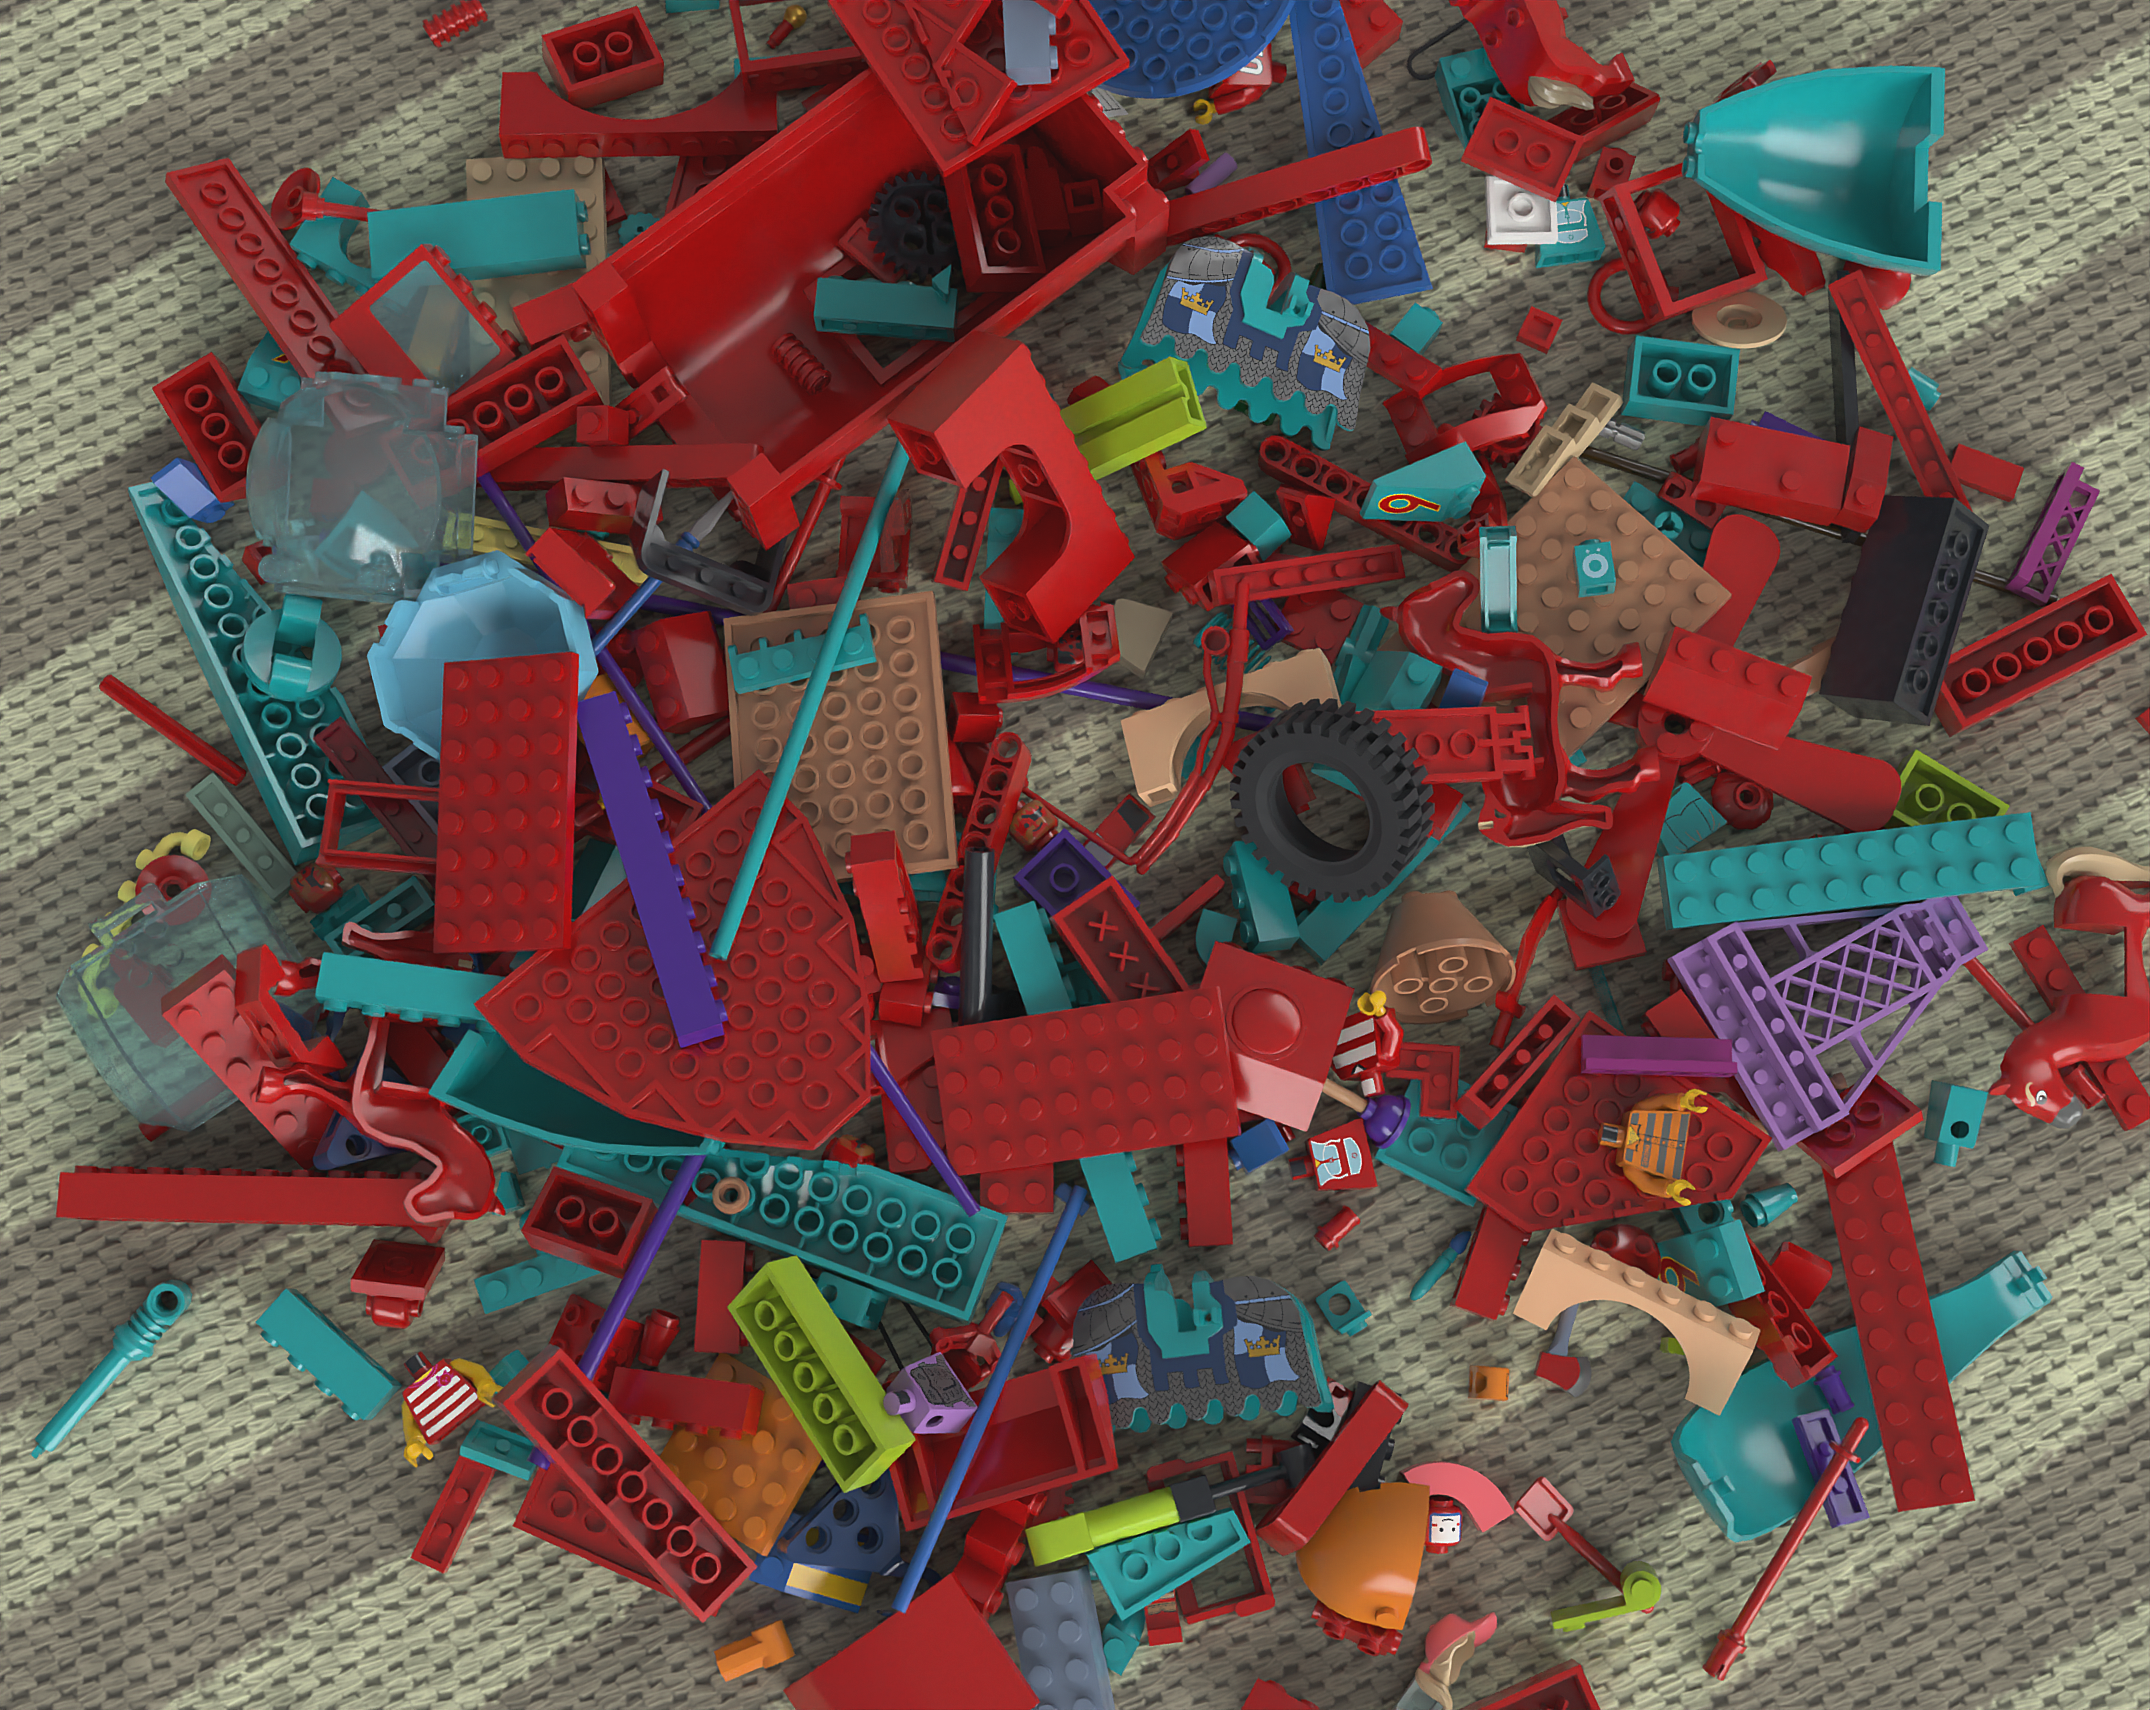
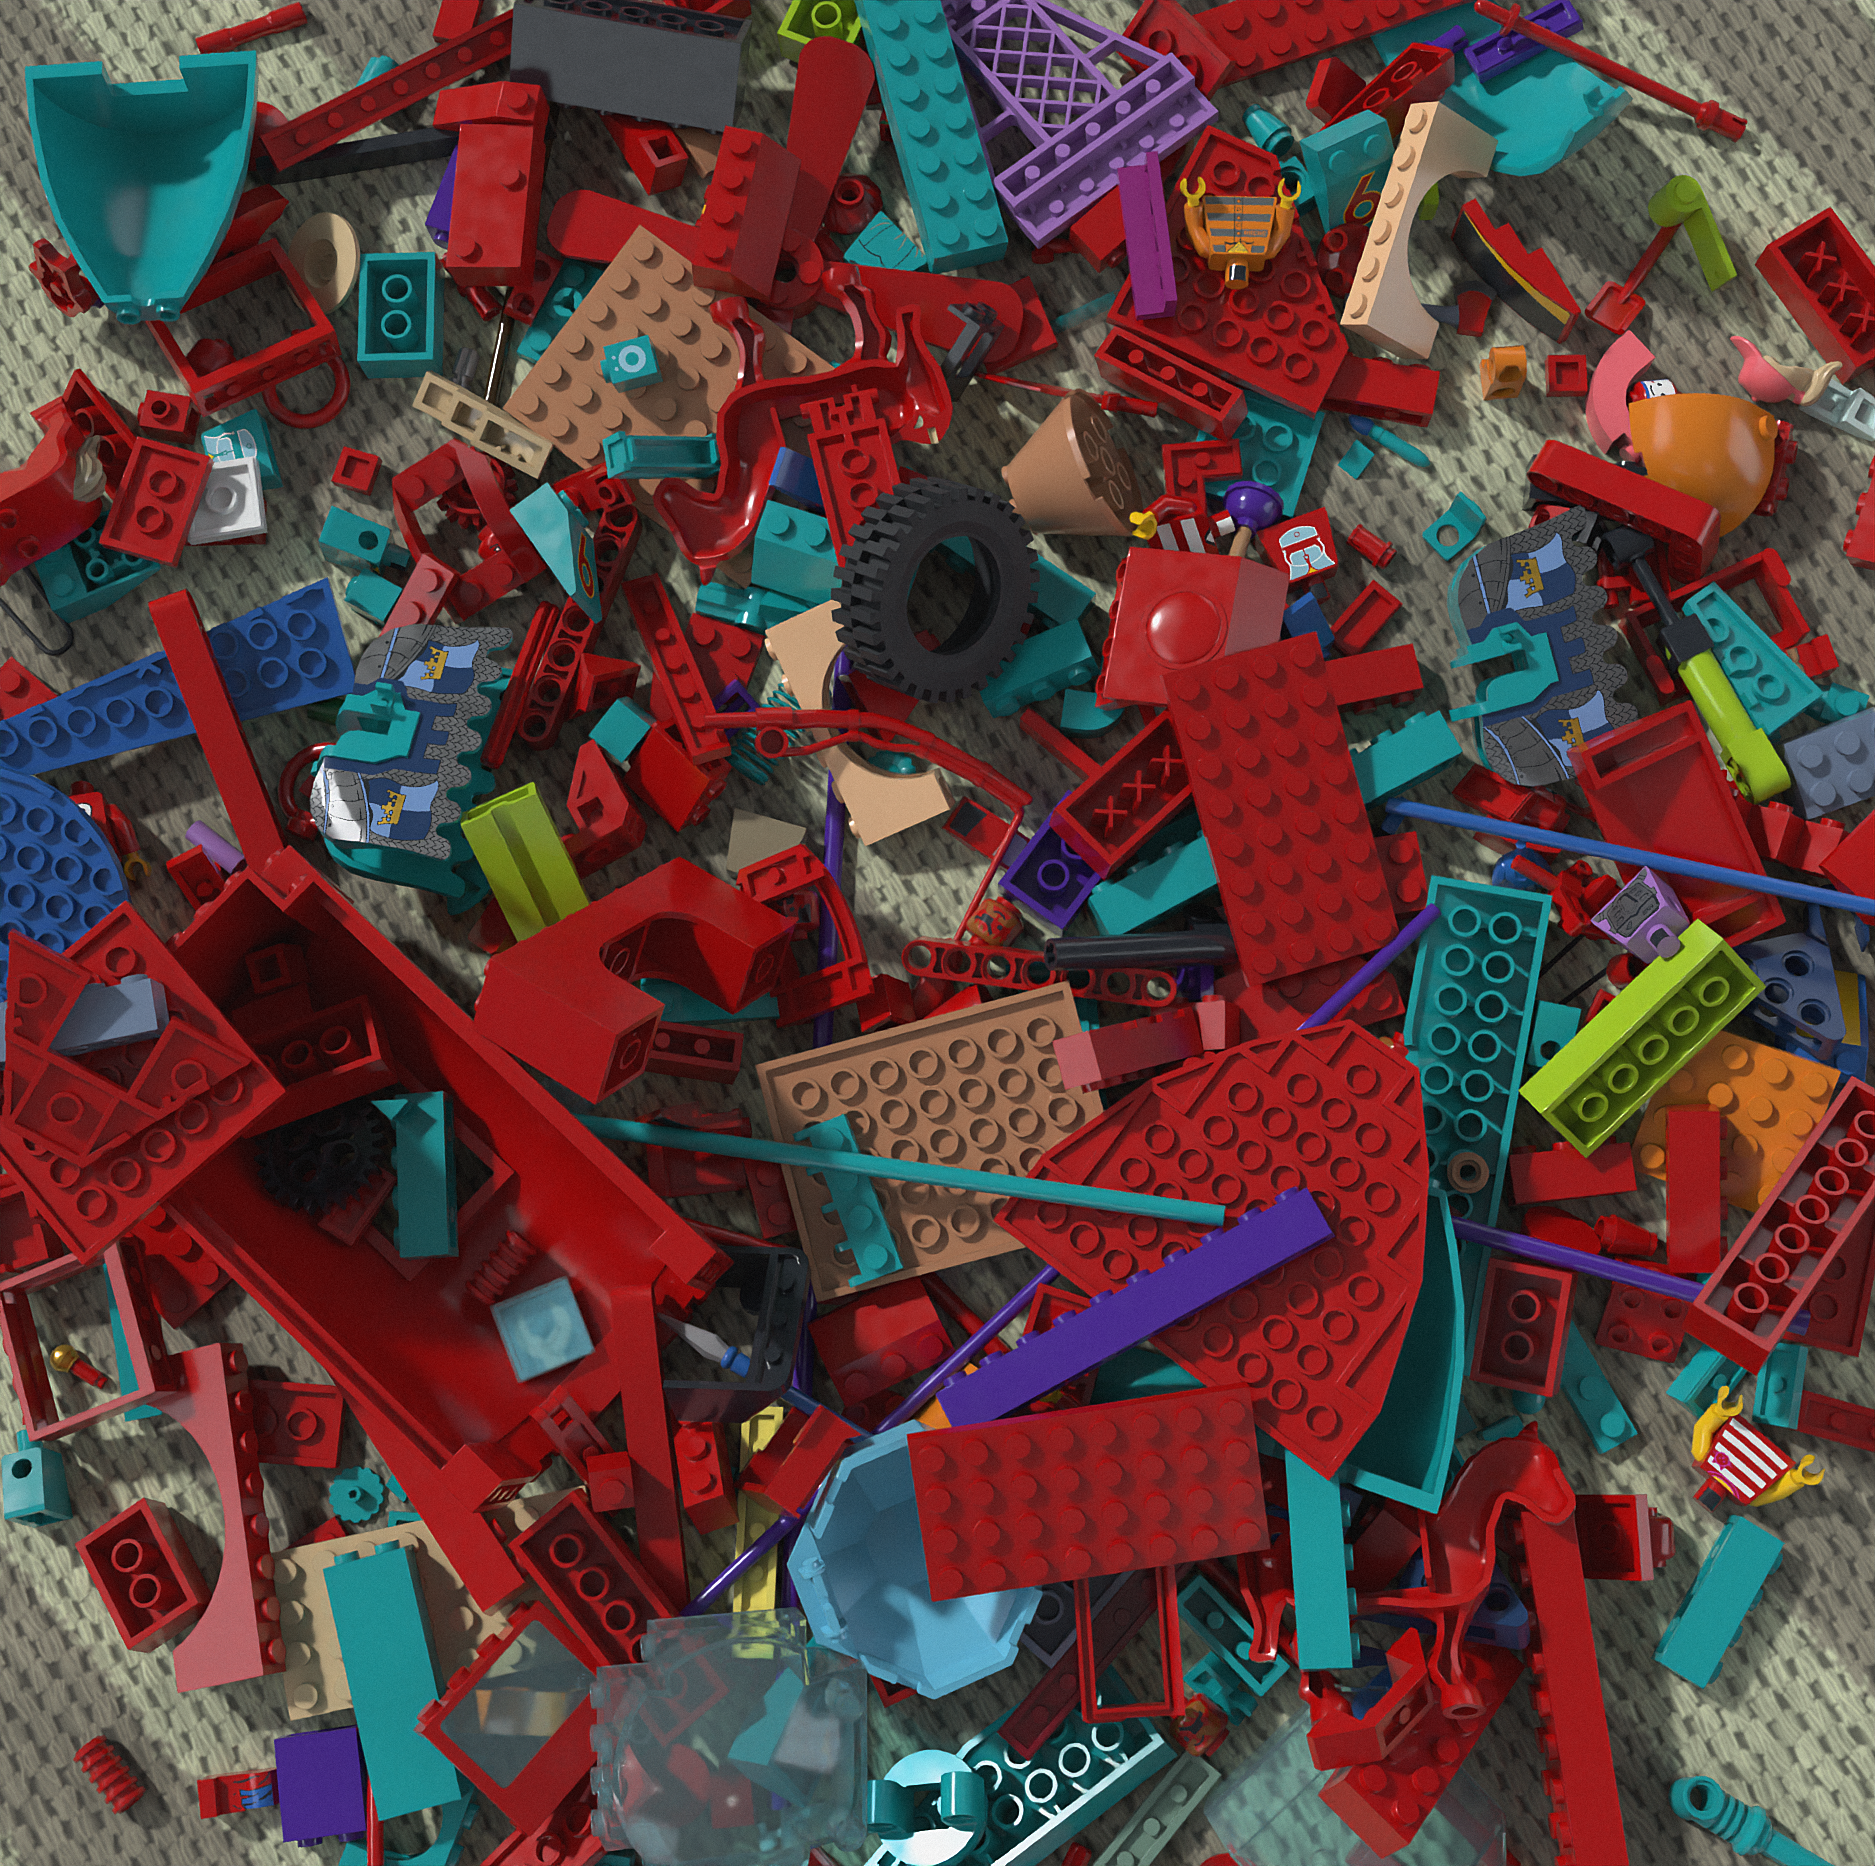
camera: 90 degrees left, 0 degrees up
(412, 175) = (322, 1785): none -> dark purple brick
(421, 116) = (237, 1791): none -> red leg
(669, 1276) = (1560, 1228): none -> red tile
(743, 392) = (542, 1329): none -> clear light blue tile
(1267, 1208) = (1364, 619): none -> red tile
(1310, 440) = (519, 685): none -> red axle
(1424, 1230) = (1356, 459): none -> teal piece
(1469, 314) = (348, 537): none -> teal torso
(1480, 1446) = (1566, 376): none -> red plate
(1578, 1418) = (1521, 279): none -> slope
(1811, 623) = (649, 150): none -> red slope
(1977, 265) = (272, 23): none -> red piece

